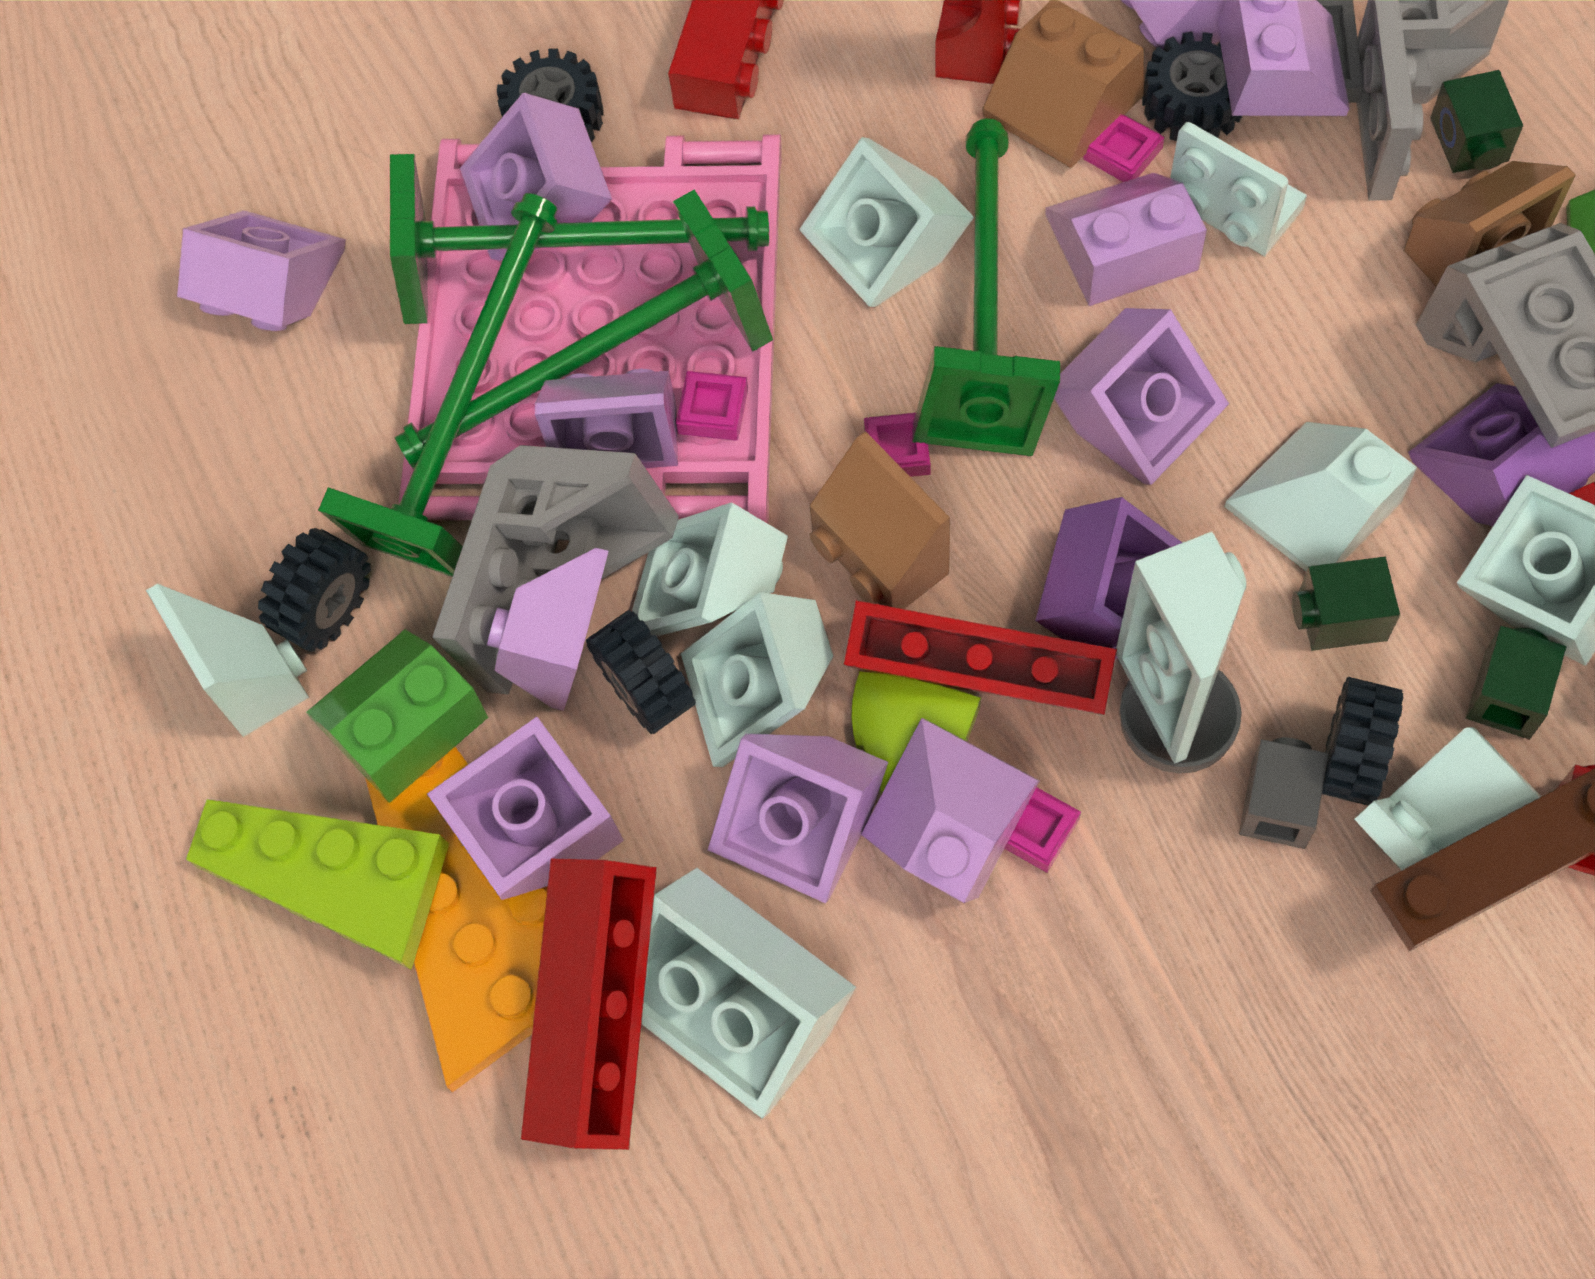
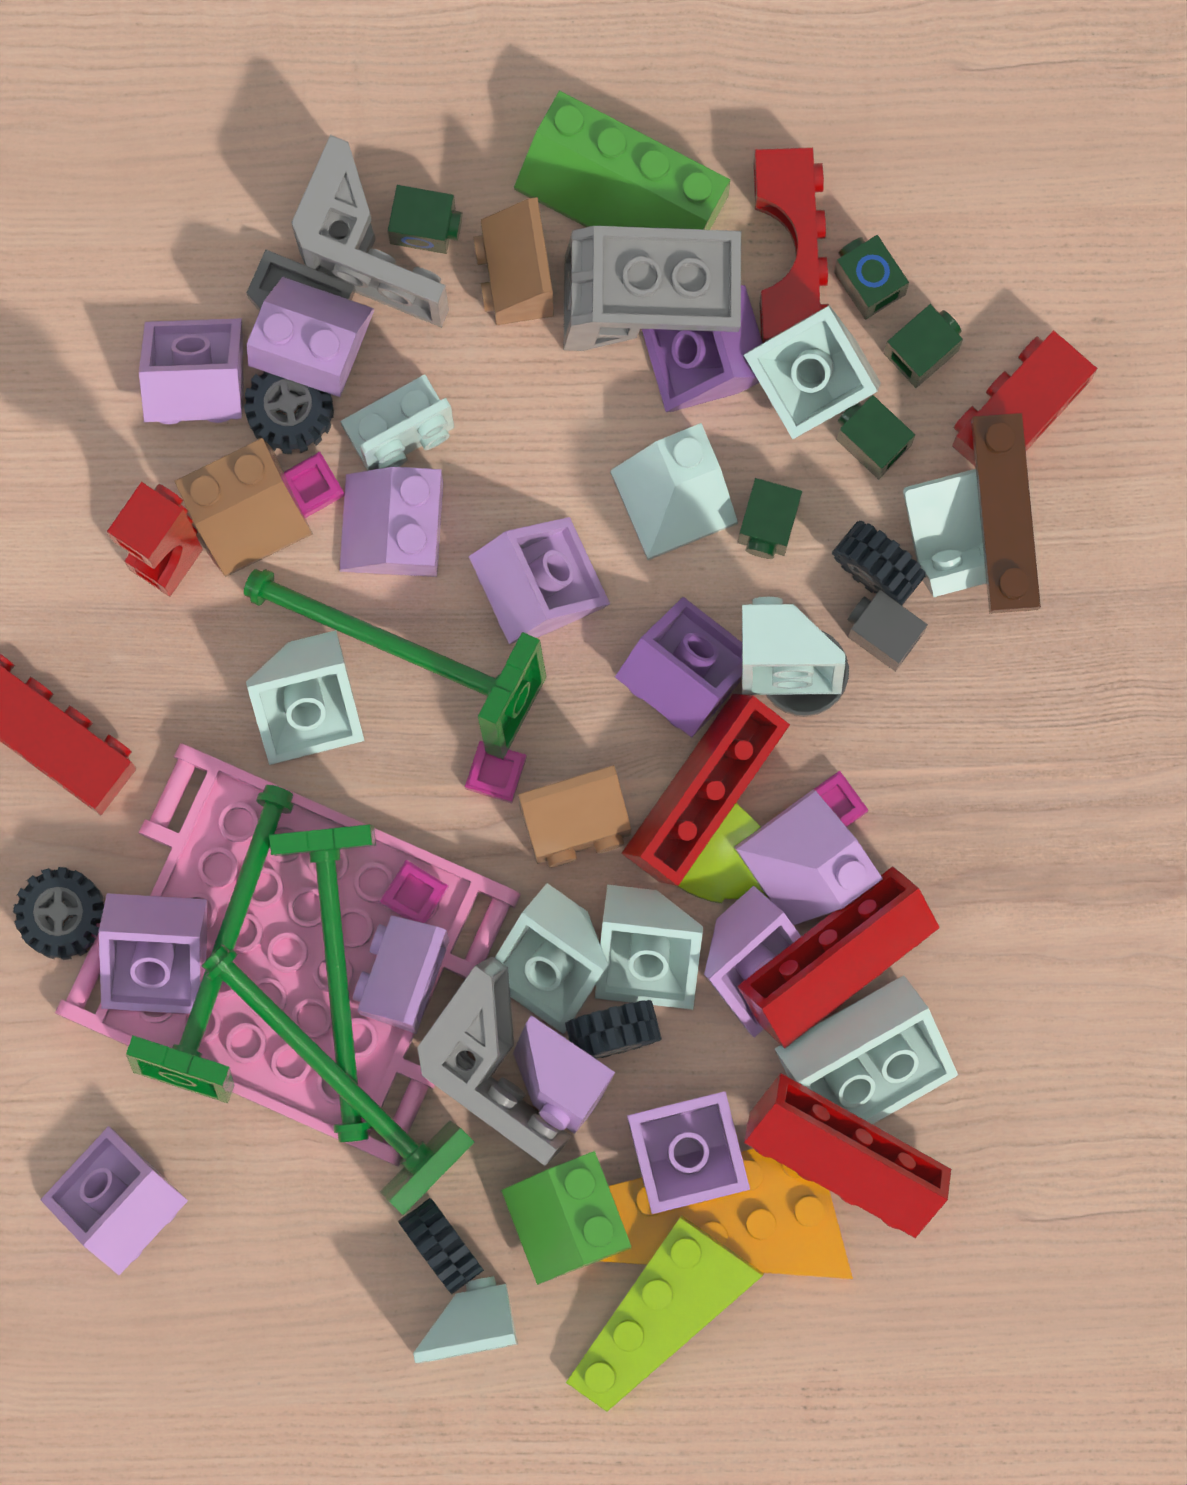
camera: 75 degrees left, 15 degrees up
(842, 895) = (838, 957): none -> red brick

